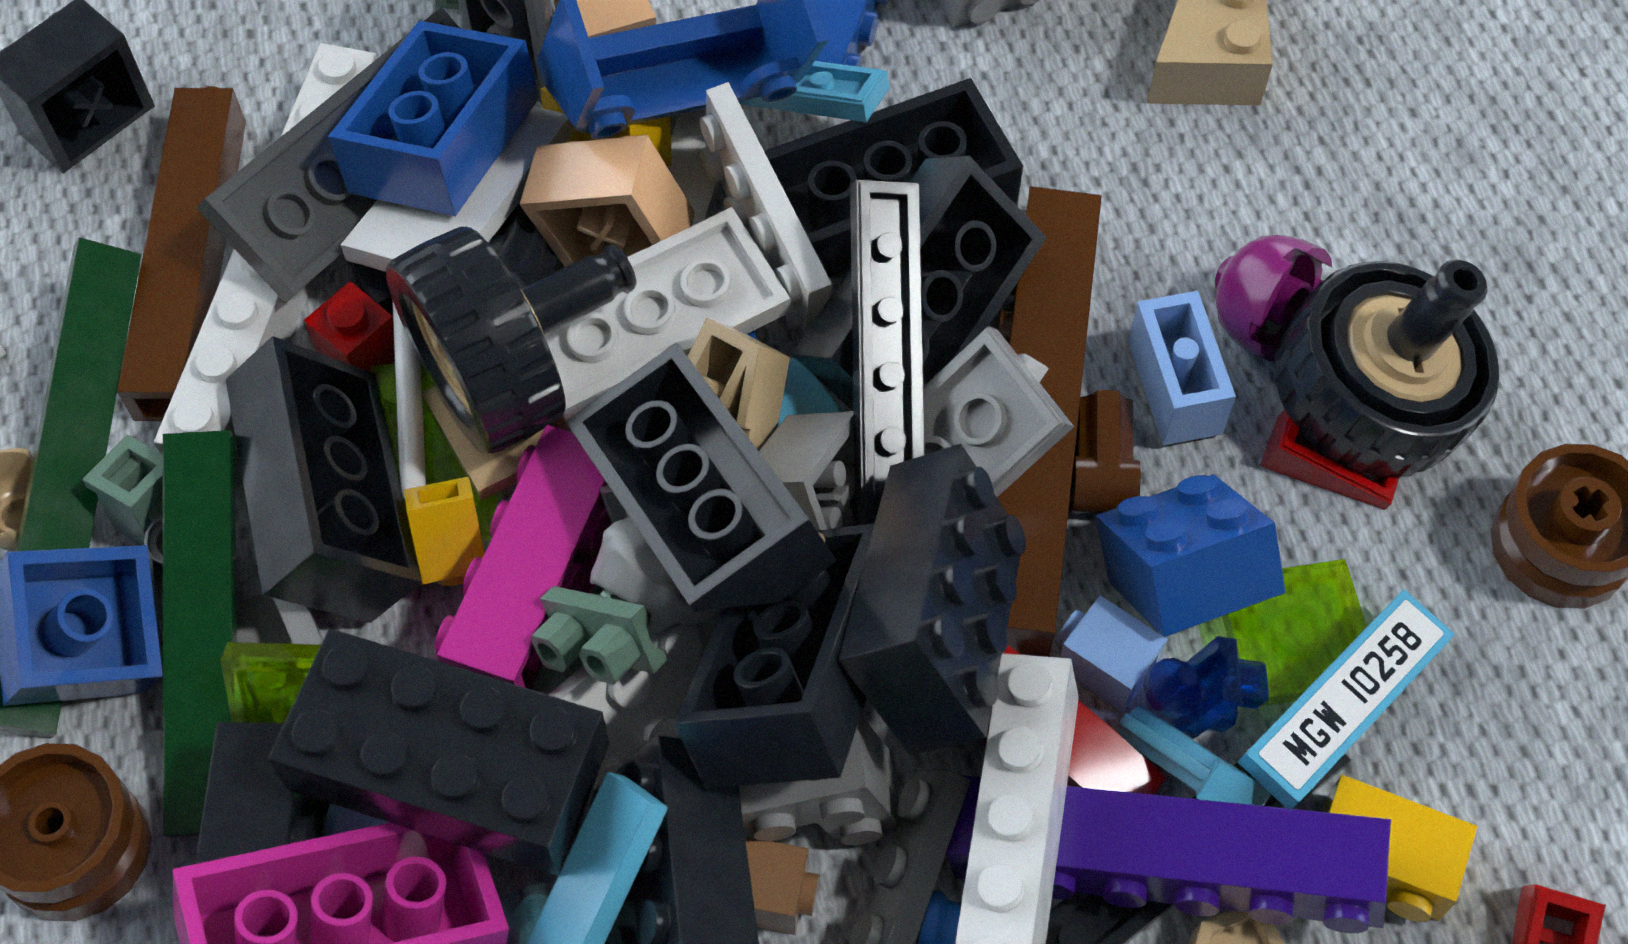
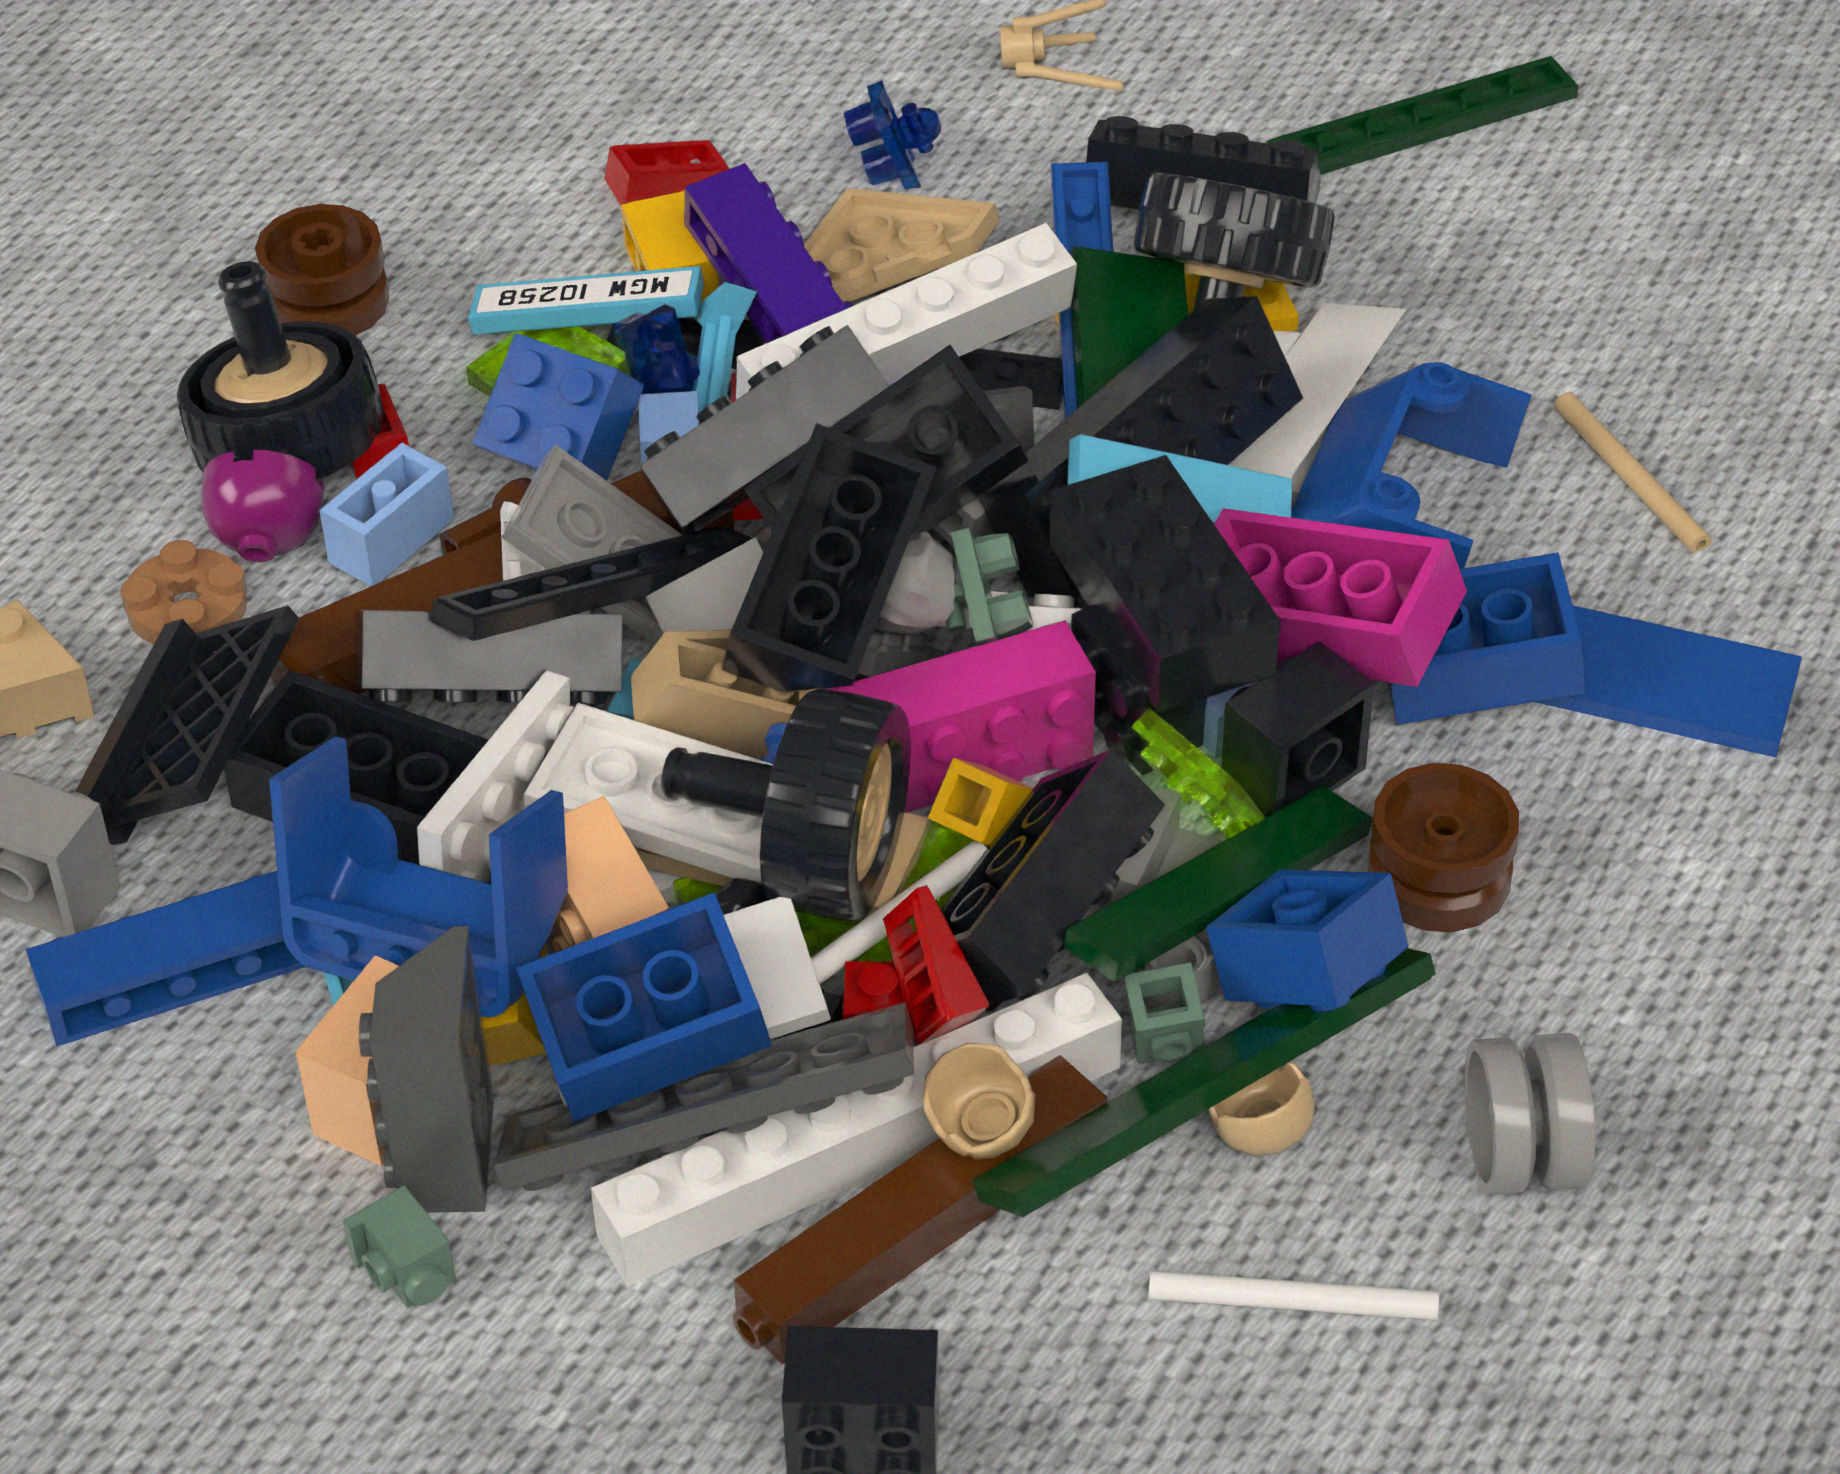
camera: 130 degrees left, 15 degrees down
(170, 278) = (978, 1100): none -> tan hair
(261, 319) = (931, 968): none -> red slope
(1080, 103) = (183, 718): none -> black fence
(1229, 186) = (180, 569): none -> medium nougat plate

